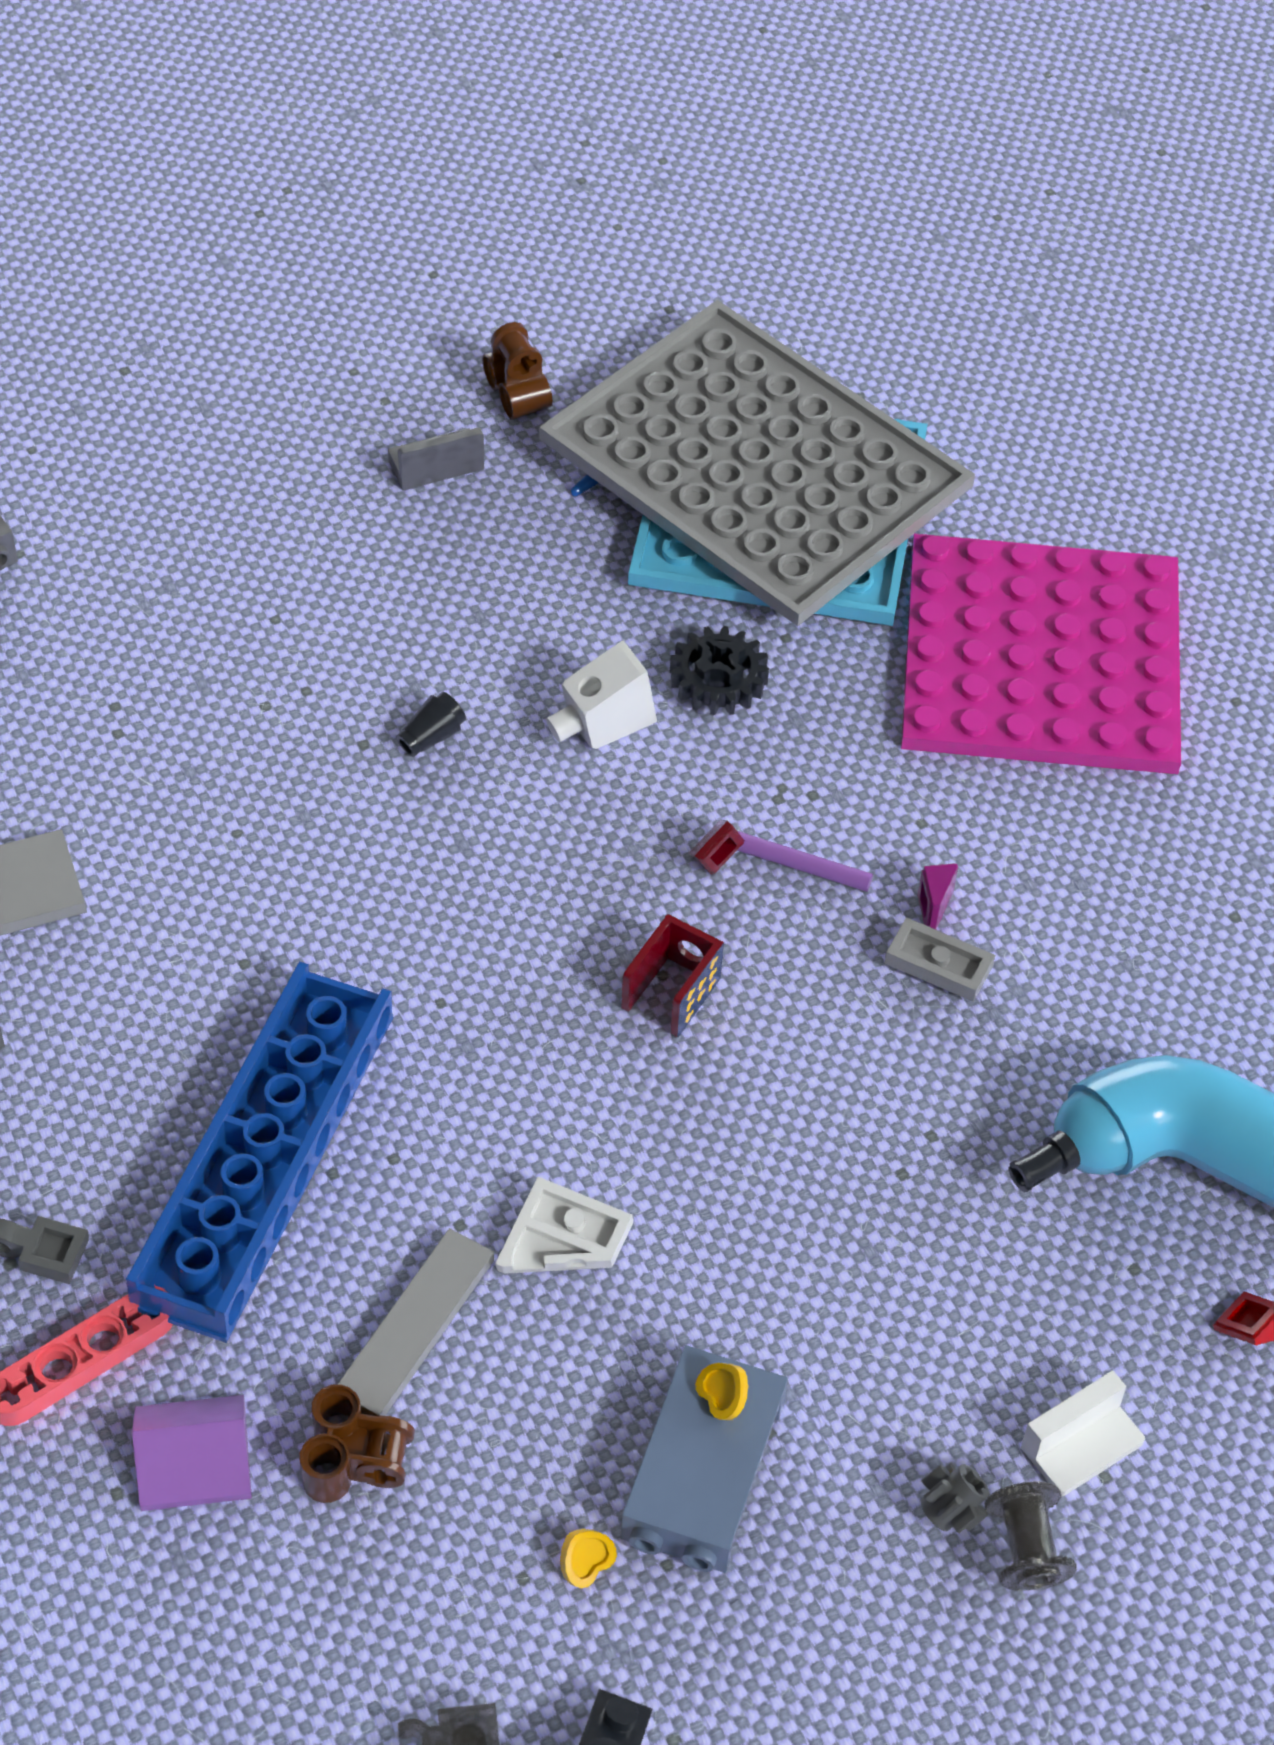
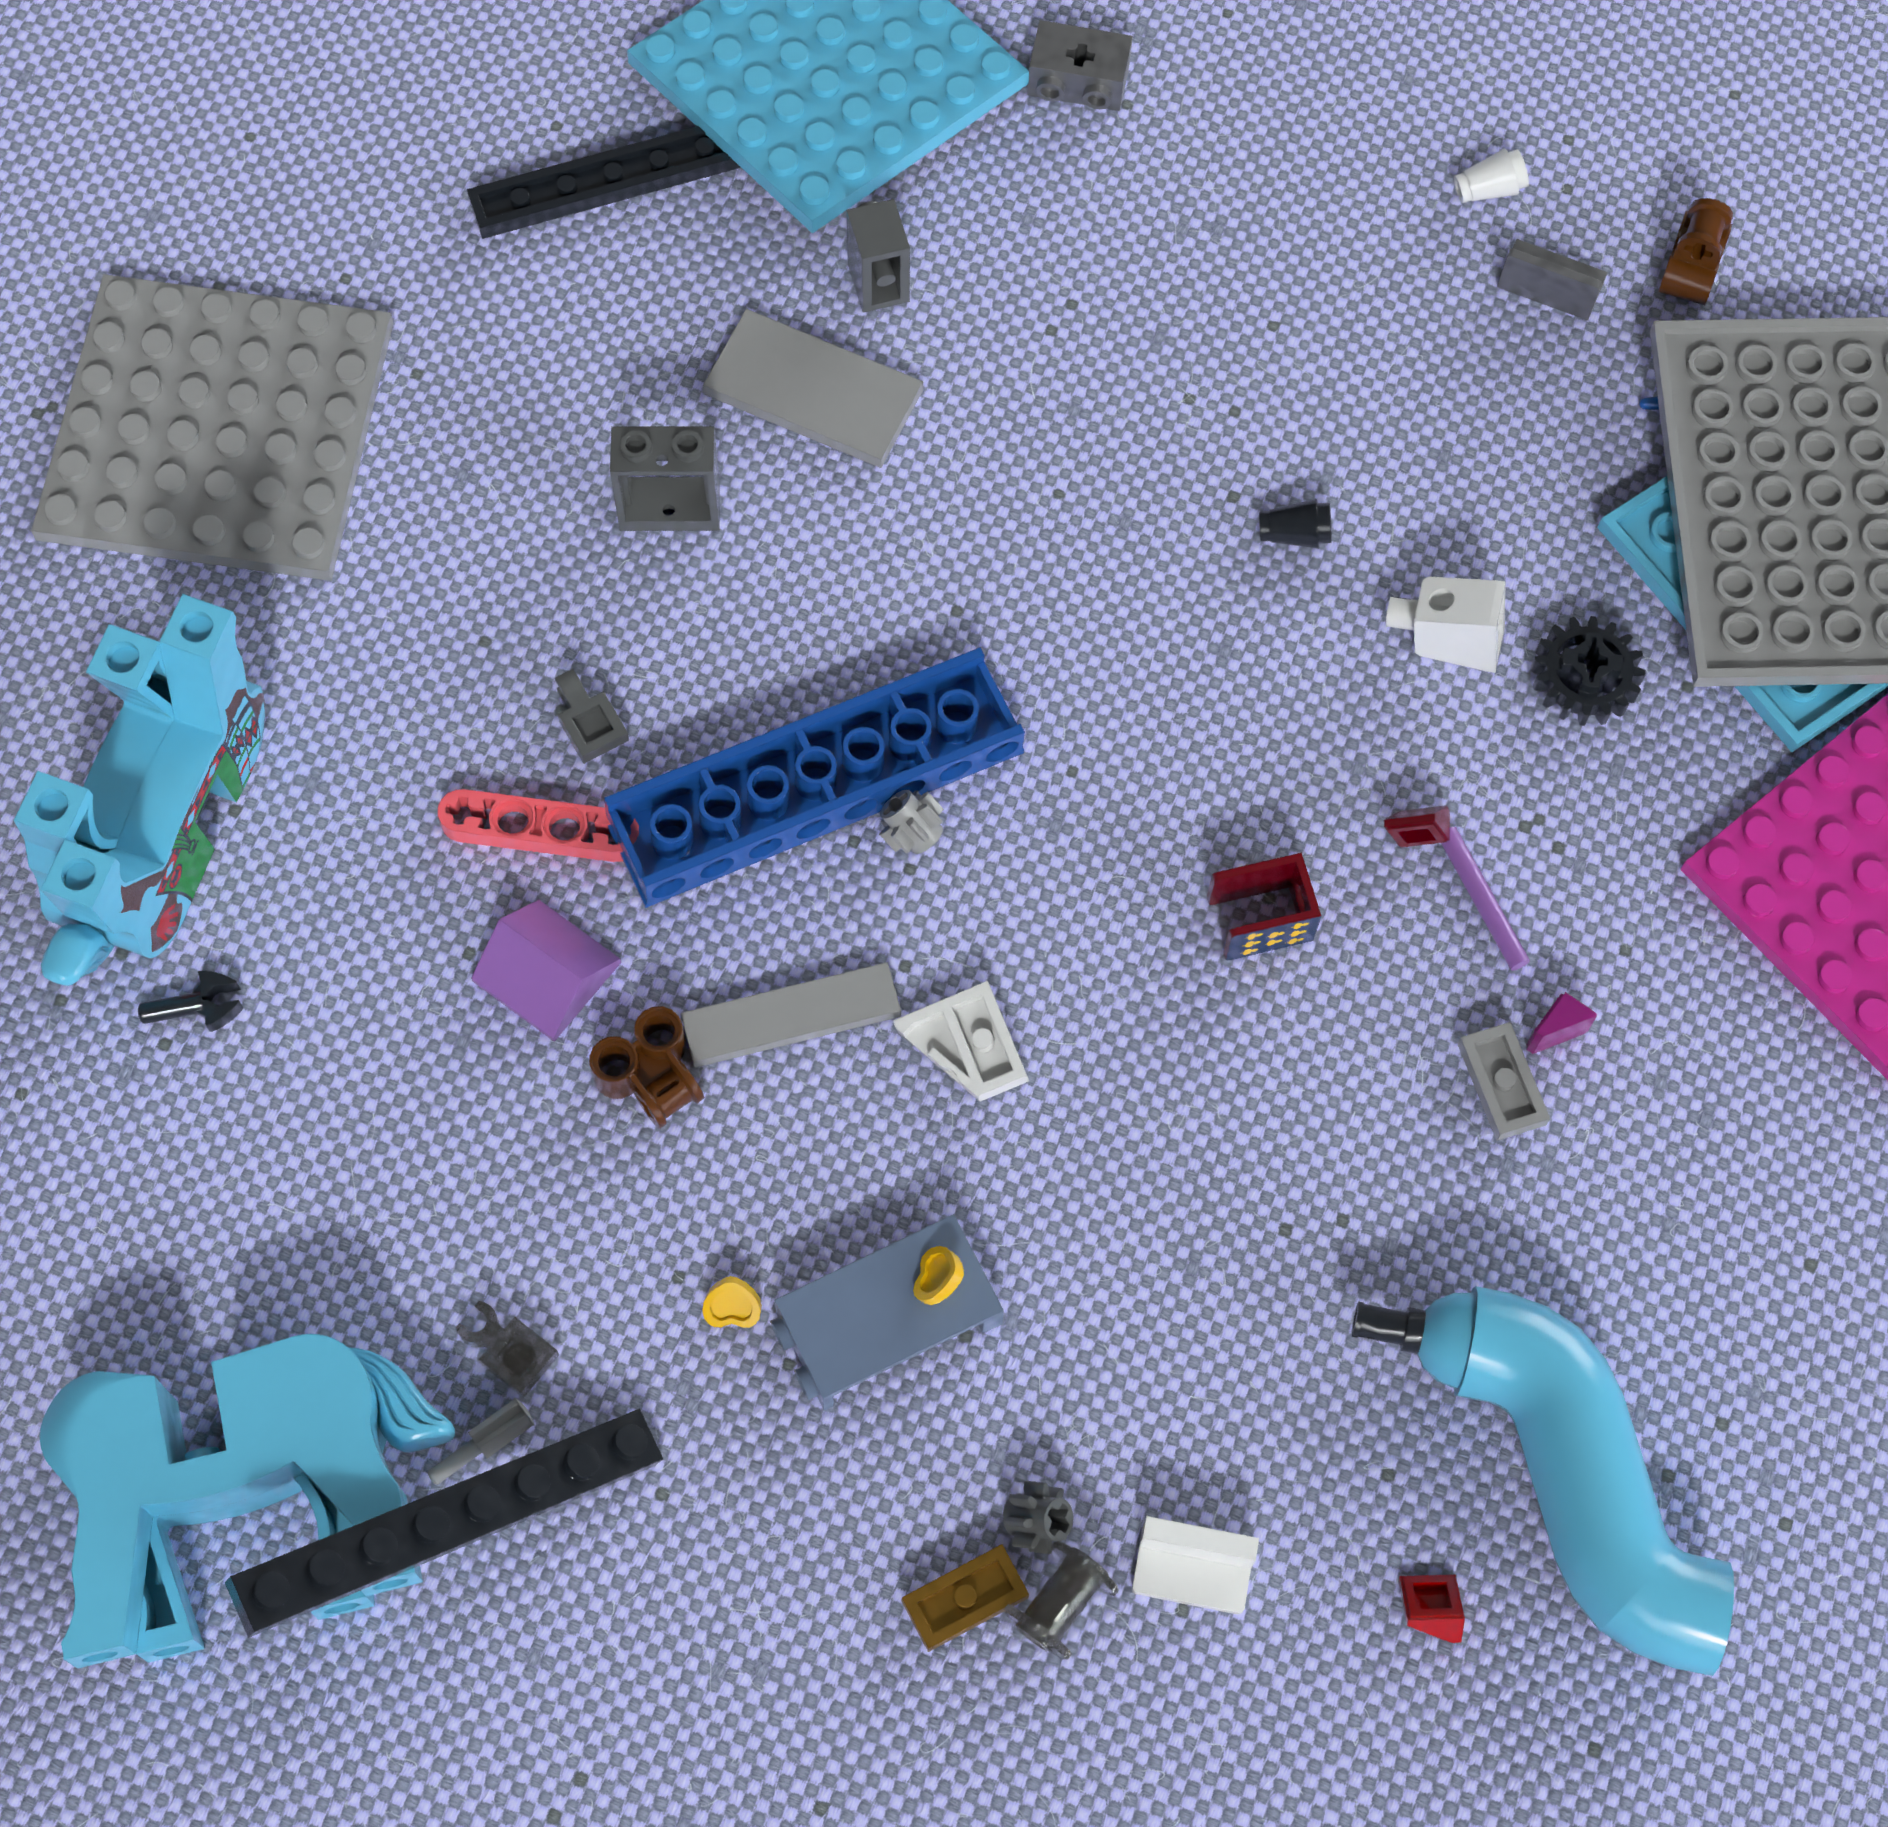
camera: 45 degrees right, 15 degrees up
(333, 421) = (1493, 177): none -> white cone
(368, 1118) = (911, 821): none -> light grey gear
(963, 1601) = (965, 1597): none -> pearl gold plate

